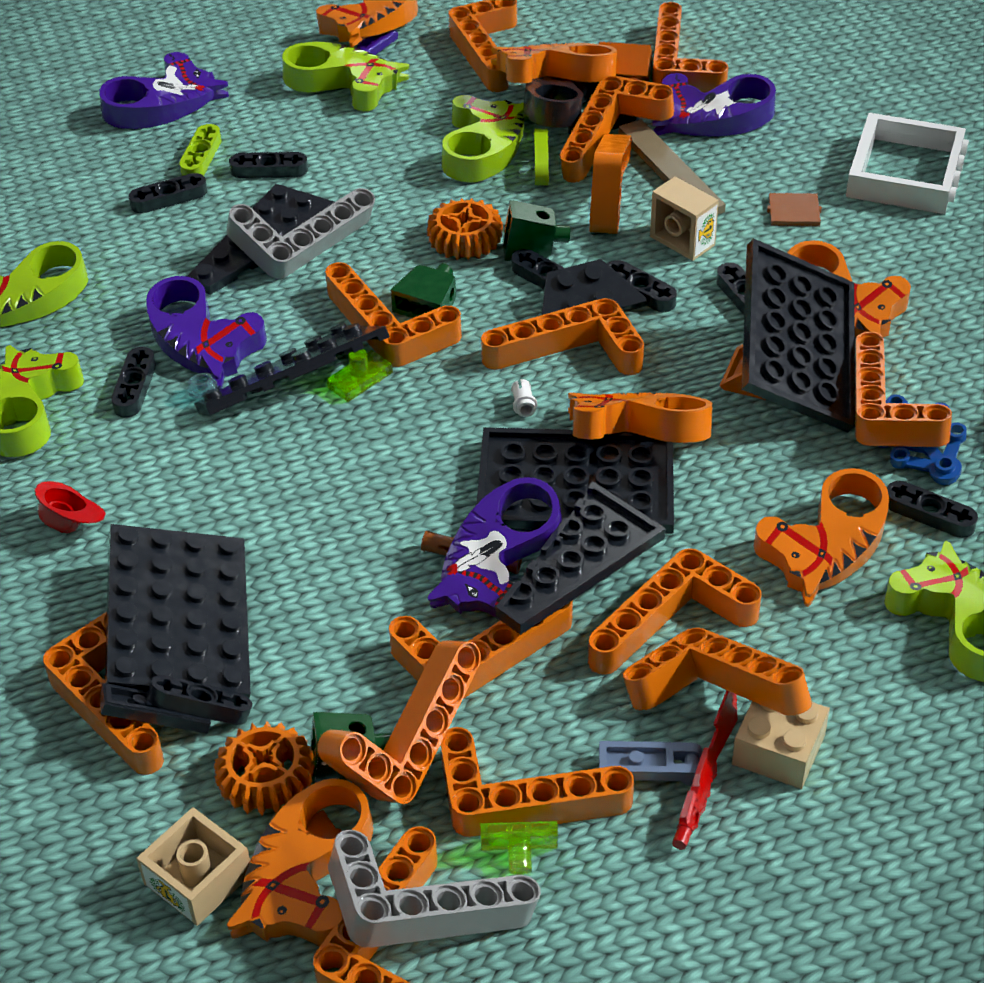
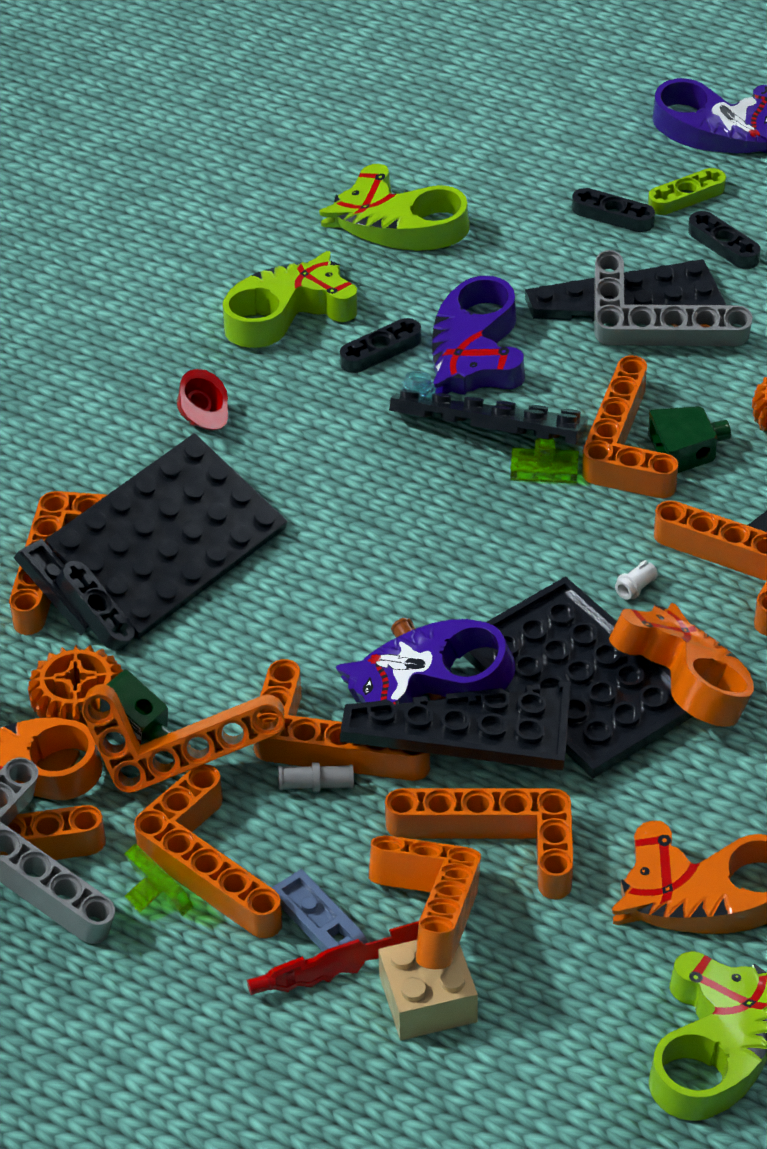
camera: 50 degrees right, 0 degrees up
(514, 679) = (315, 777): none -> light grey pin

